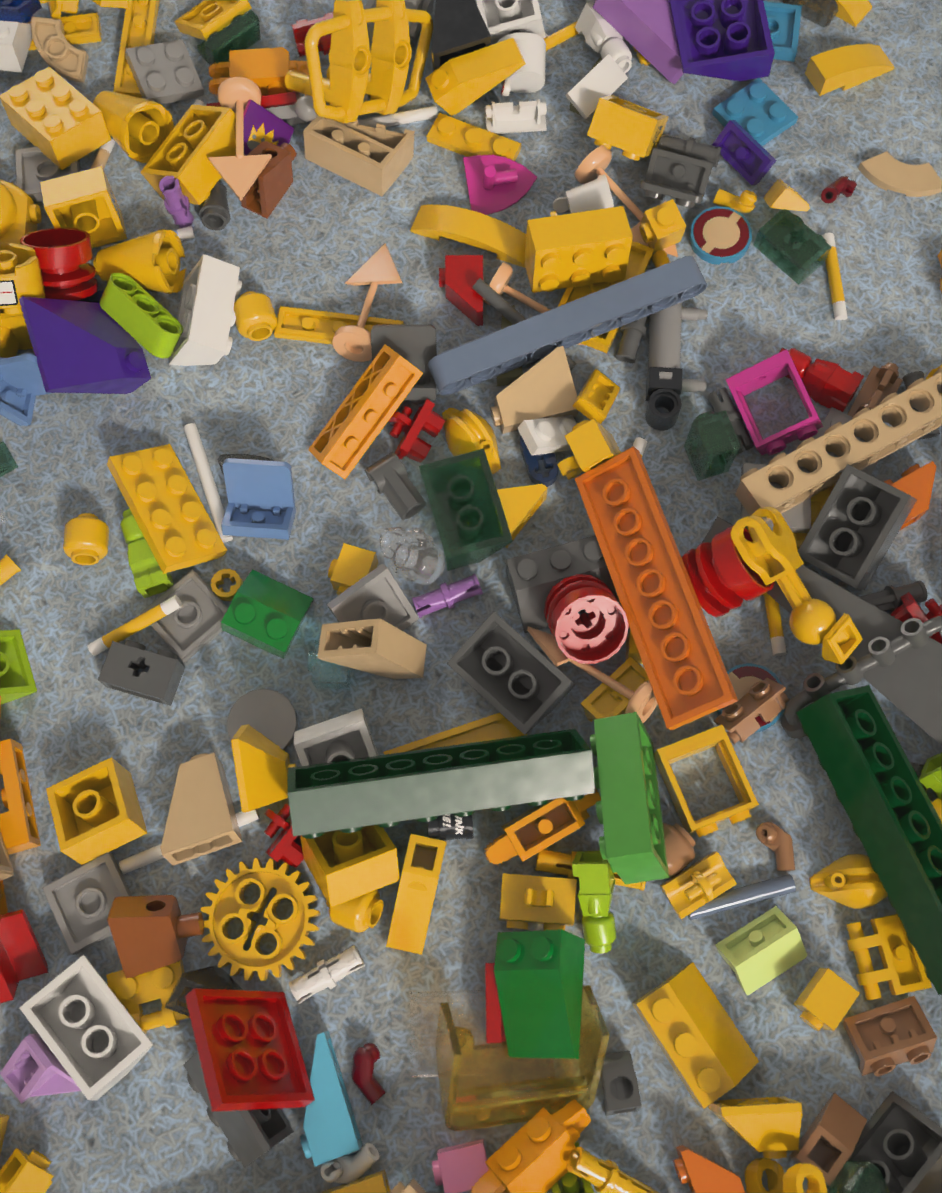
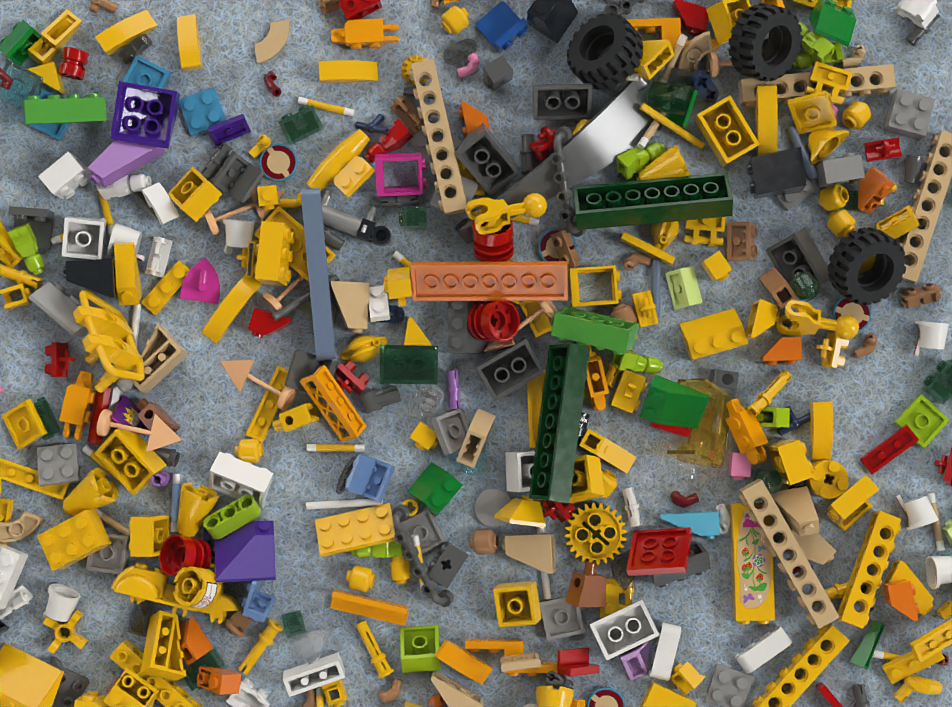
camera: 75 degrees left, 15 degrees up
(43, 569) = (369, 607): none -> light orange fence
(65, 1124) = (665, 651): none -> white beam
(116, 599) = (400, 570): none -> yellow brick
(144, 600) = (411, 553): none -> dark grey bar
(196, 724) = (484, 542): none -> medium nougat head
(296, 443) = (336, 447): none -> yellow bar
(322, 358) = (301, 415): none -> yellow torso
(596, 396) = (364, 271): yellow plate -> none
(754, 320) = (344, 166): none -> yellow plate
(784, 197) = (271, 118): yellow slope -> none
(808, 857) = (647, 248): none -> yellow tile
(835, 350) = (373, 126): none -> dark blue piece
(840, 640) = (549, 195): yellow slope -> none
(903, 285) = (347, 71): none -> yellow slope

